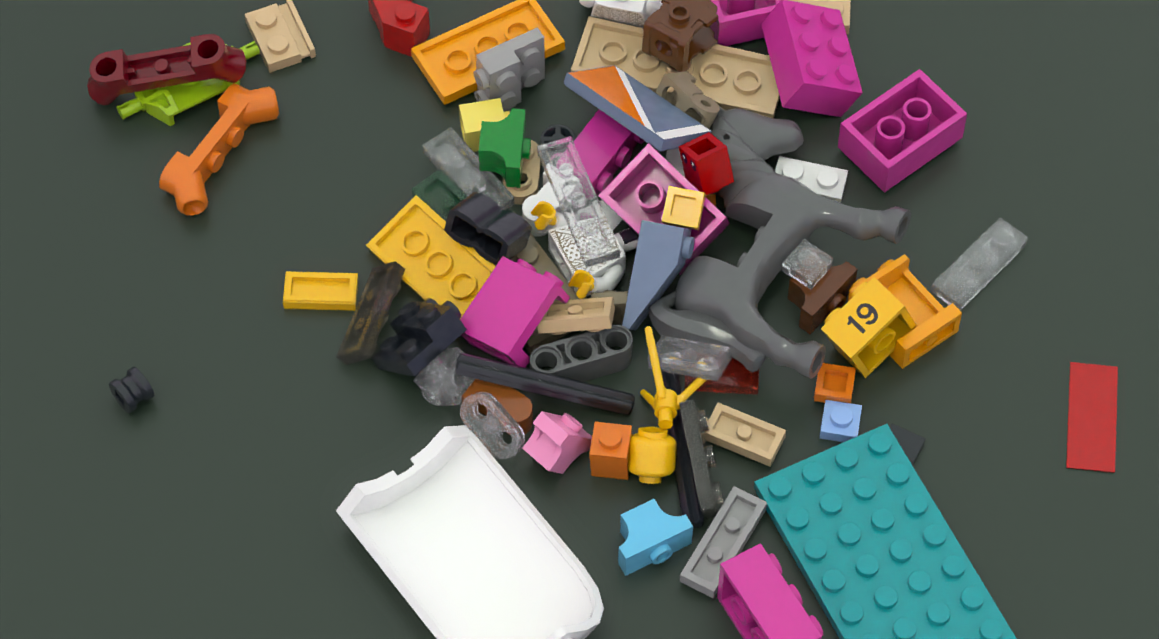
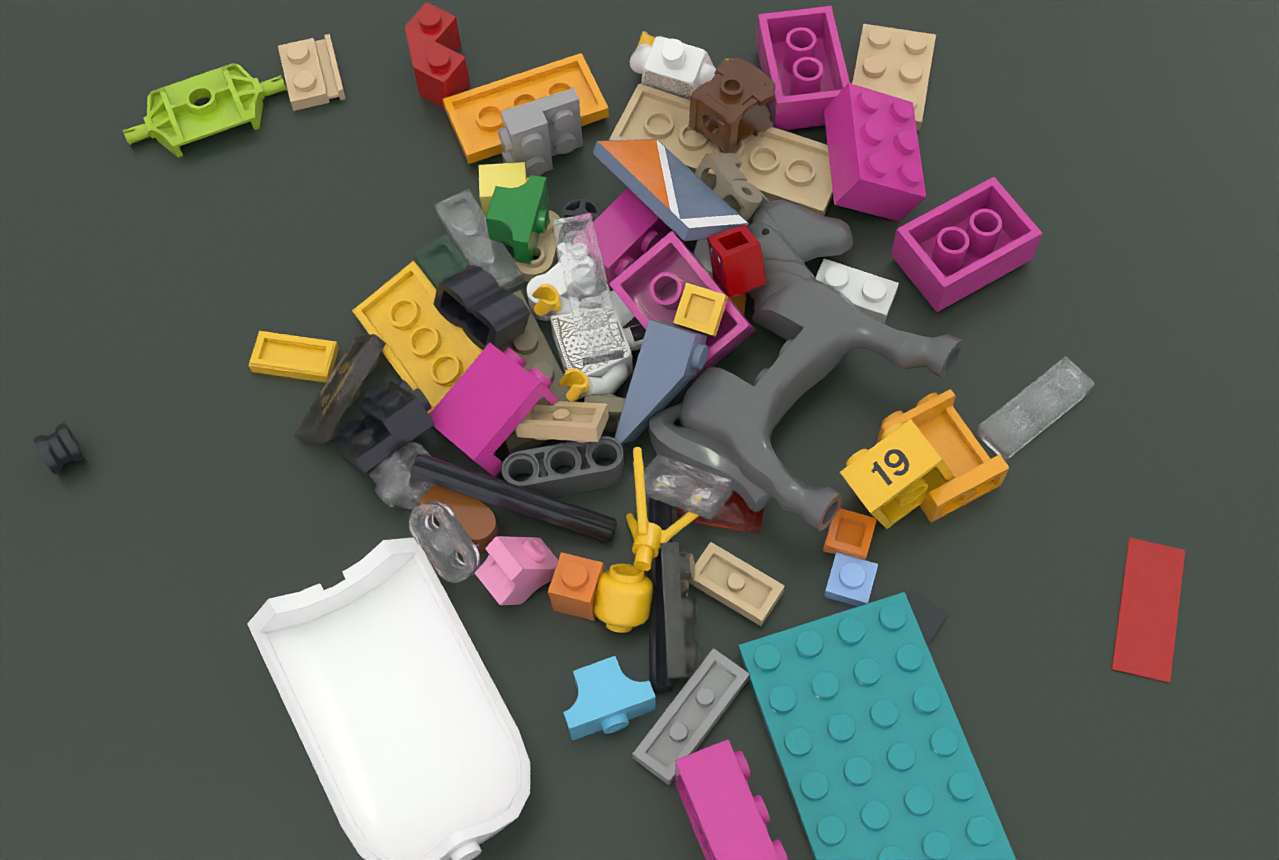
camera: 10 degrees right, 5 degrees up
(186, 175) = (178, 213): orange plate -> none
(205, 59) = (209, 88): dark red plate -> none
(807, 264) = (836, 389): clear plate -> none
(823, 297) = (848, 421): reddish brown brick -> none

